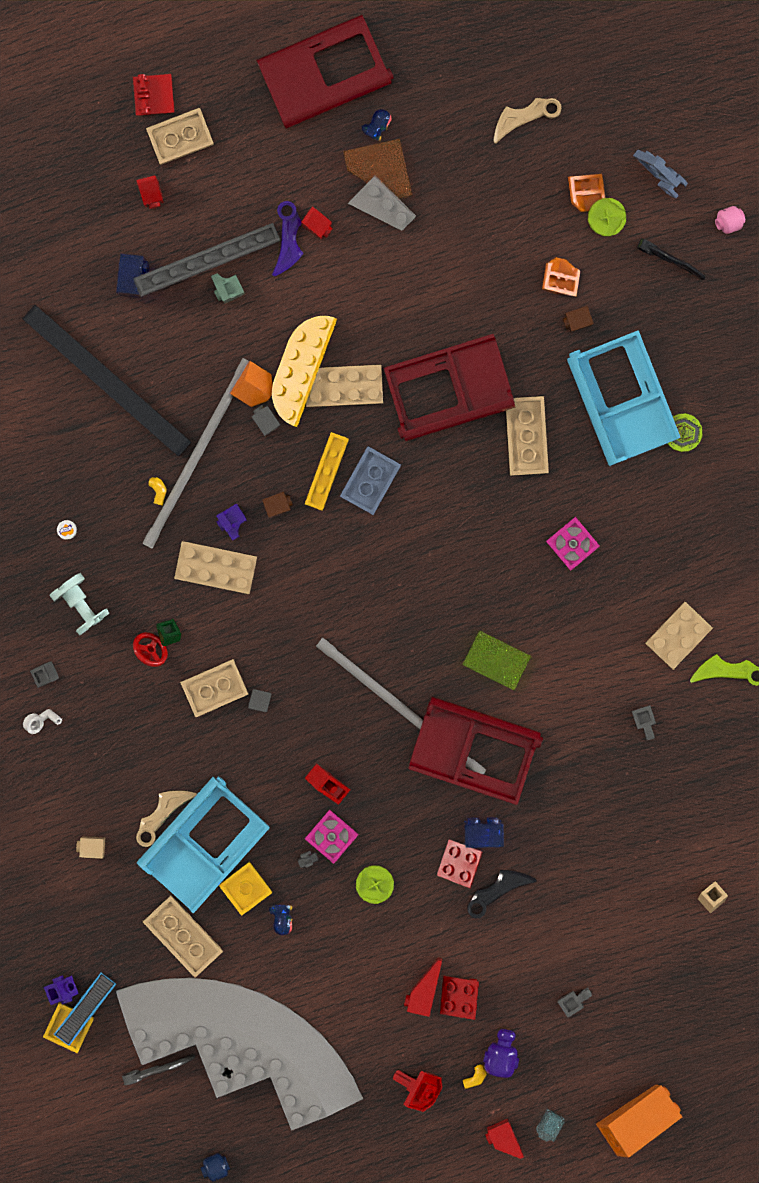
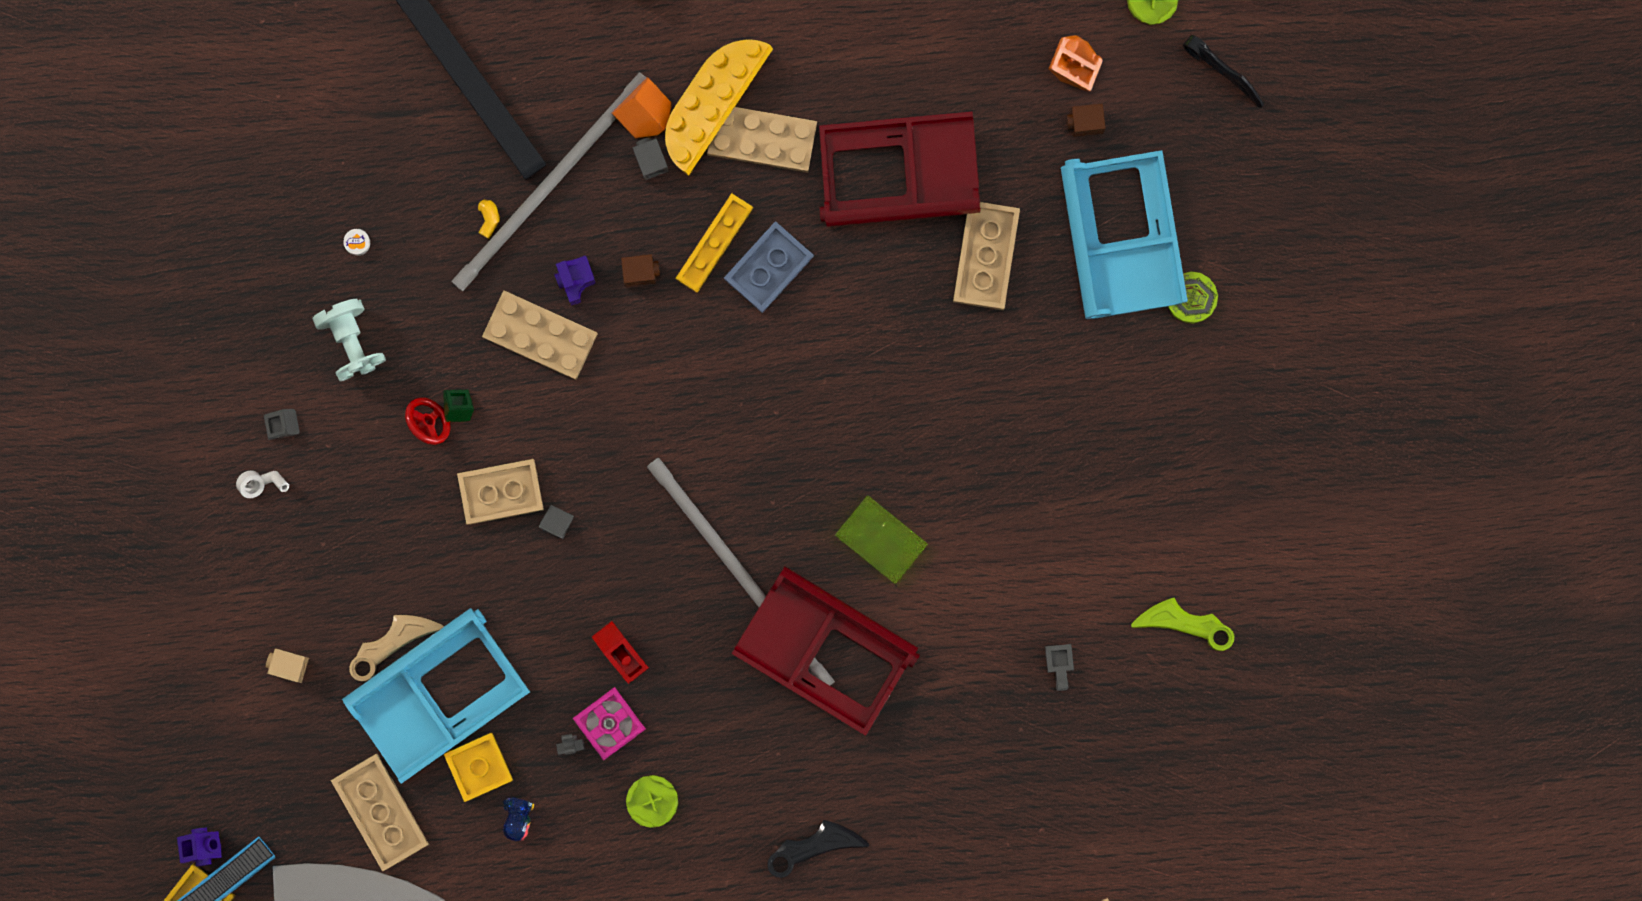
camera: 15 degrees right, 5 degrees down
(459, 863) = (771, 798): hinge -> none
(483, 833) = (812, 763): clear blue brick -> none
(572, 543) = (1015, 409): dark pink piece -> none
(678, 635) = (1129, 561): tan plate -> none
(730, 219) = (1312, 37): bright pink head -> none

